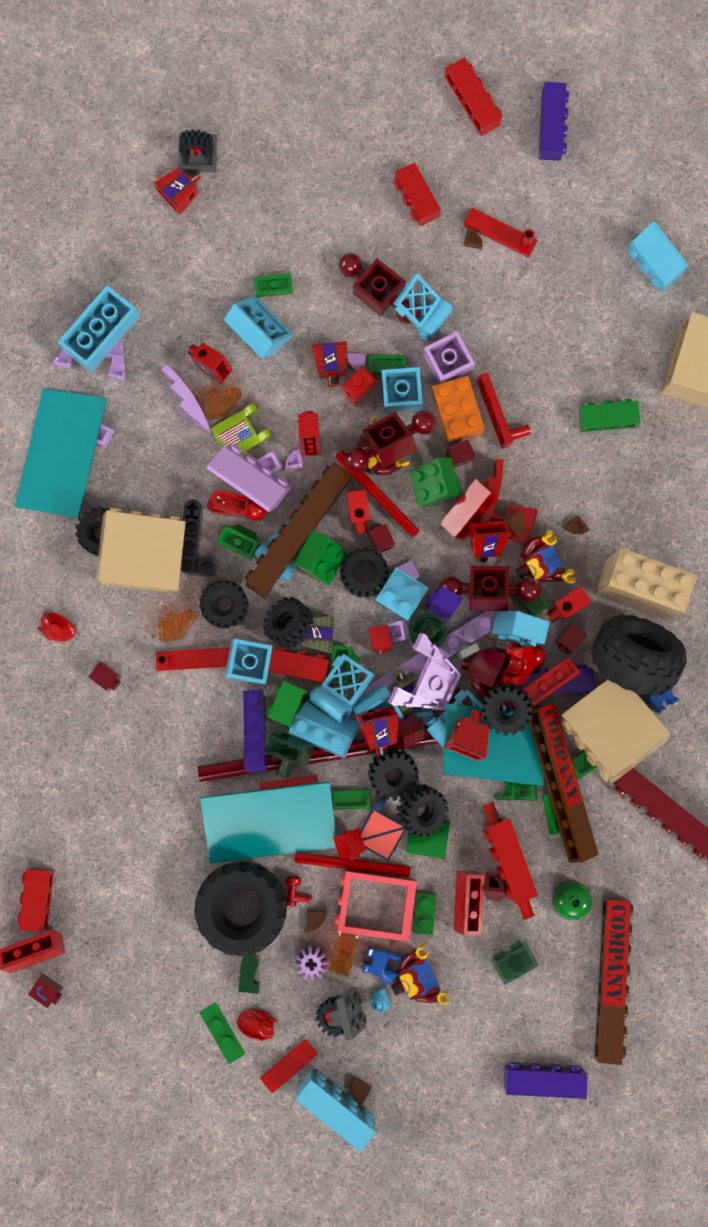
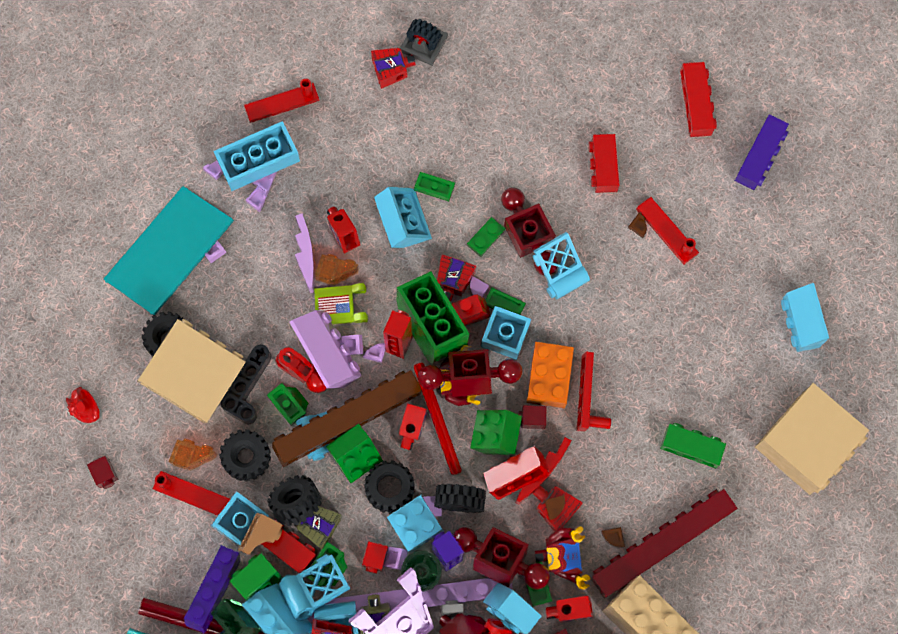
camera: 25 degrees right, 10 degrees down
(95, 268) = (282, 102): none -> red piece
(272, 663) = (261, 530): none -> medium nougat arch
(339, 409) = (433, 318): none -> green brick
(341, 311) = (486, 237): none -> green plate
(381, 538) = (421, 461): dark red brick -> none
(431, 554) = (460, 498): none -> black tyre
(448, 358) = (563, 323): lavender brick -> none
(488, 539) = (521, 509): red torso -> none
(621, 512) = (664, 543): none -> dark red brick

